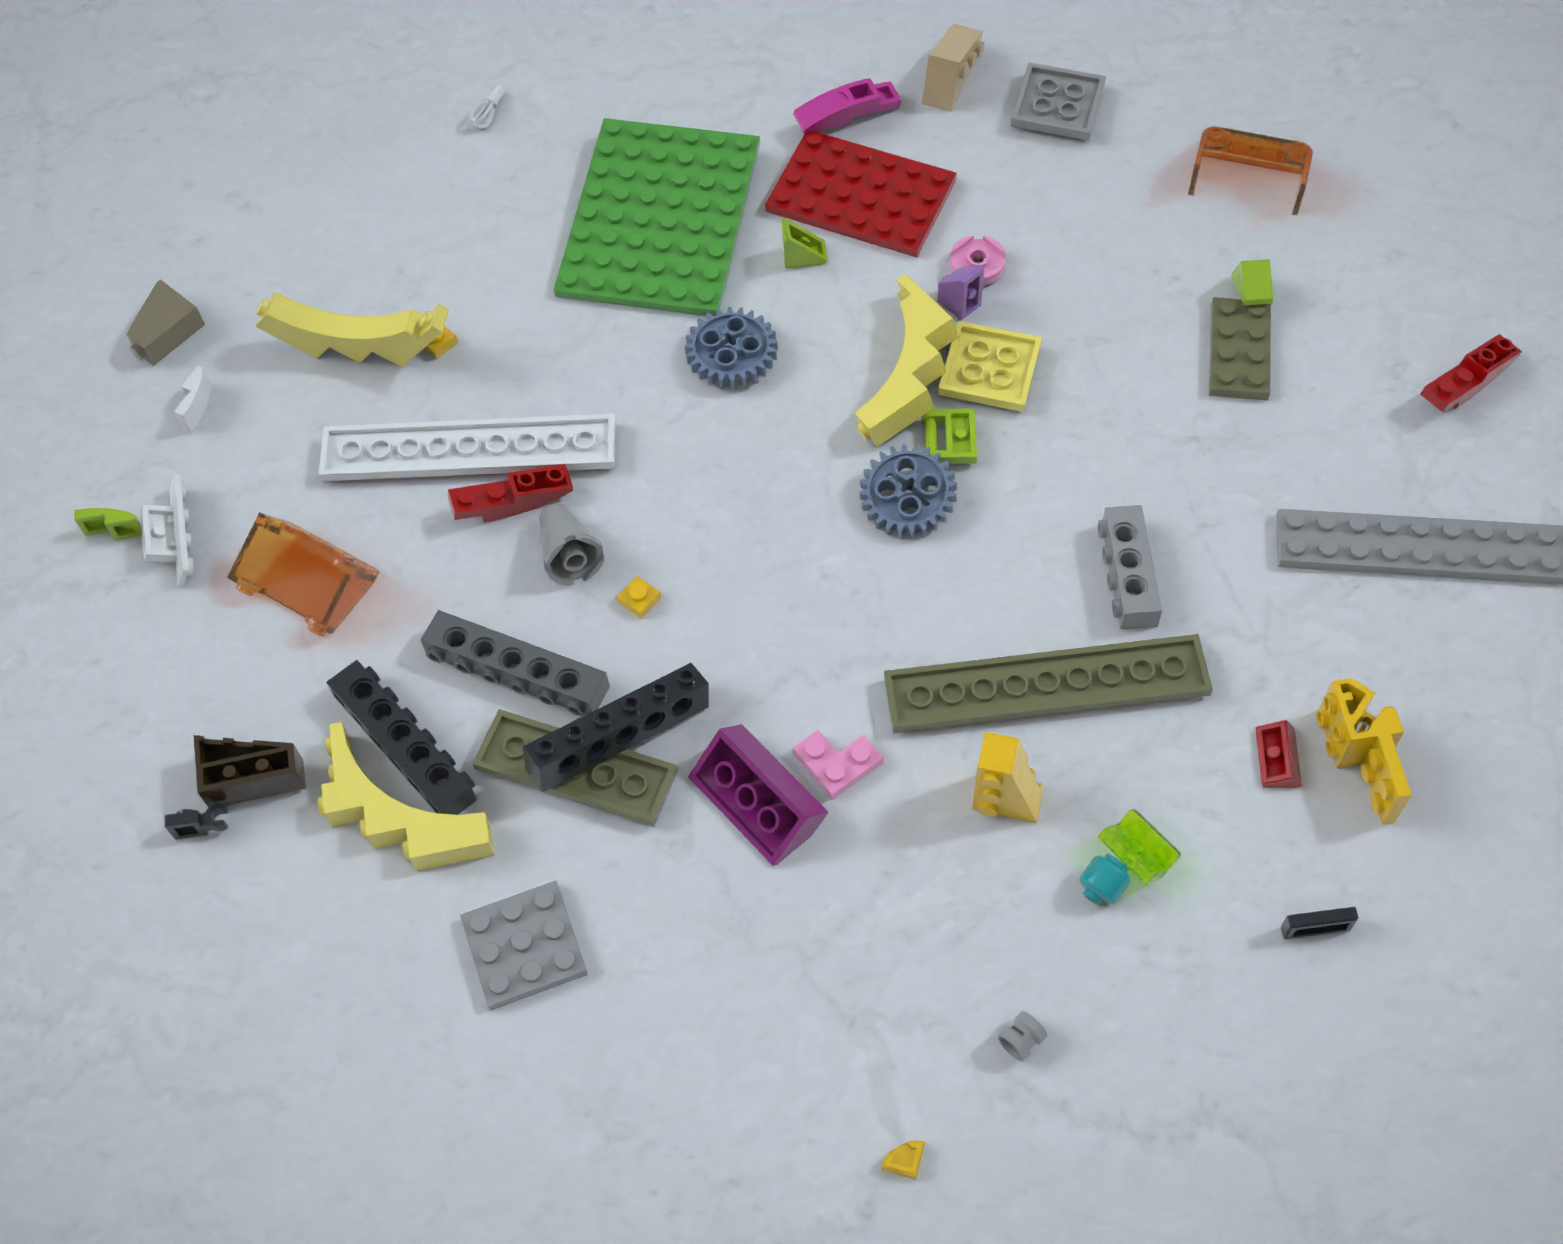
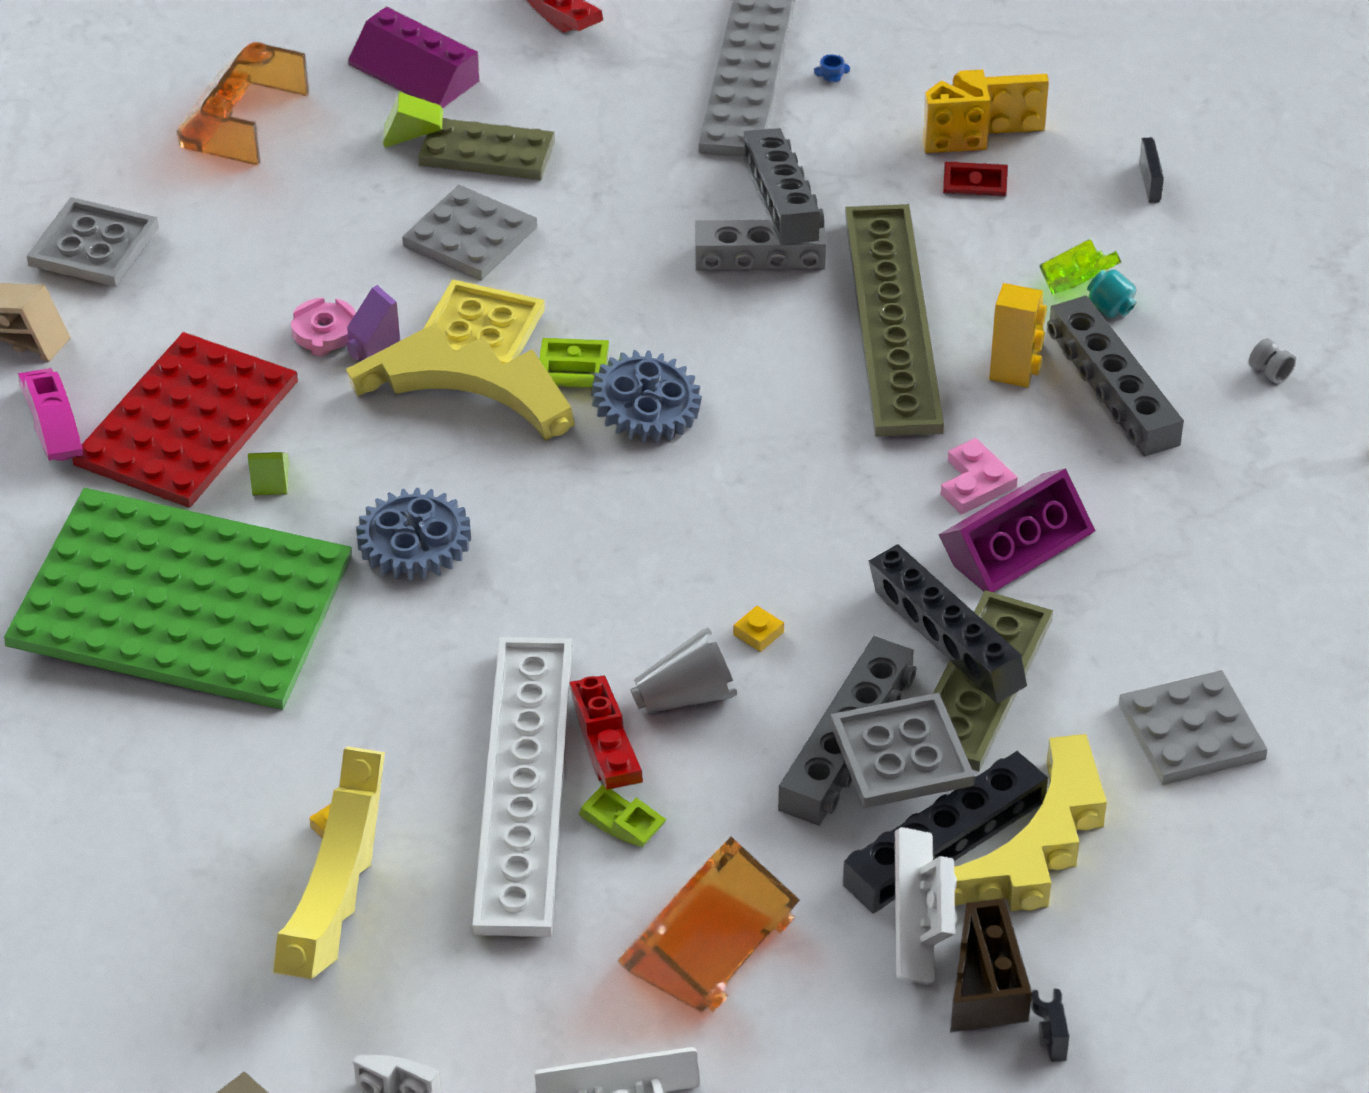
camera: 90 degrees left, 15 degrees down
(309, 713) = (922, 904): none -> white bracket
(431, 520) = (618, 817): none -> lime slope
(460, 692) = (901, 750): none -> light grey plate
(913, 925) = (1115, 376): none -> dark grey brick
(1120, 348) = (469, 232): none -> light grey plate
(1201, 569) = (782, 186): none -> dark grey brick
(1349, 278) = (414, 58): none -> magenta slope
(1429, 610) = (832, 68): none -> blue plate

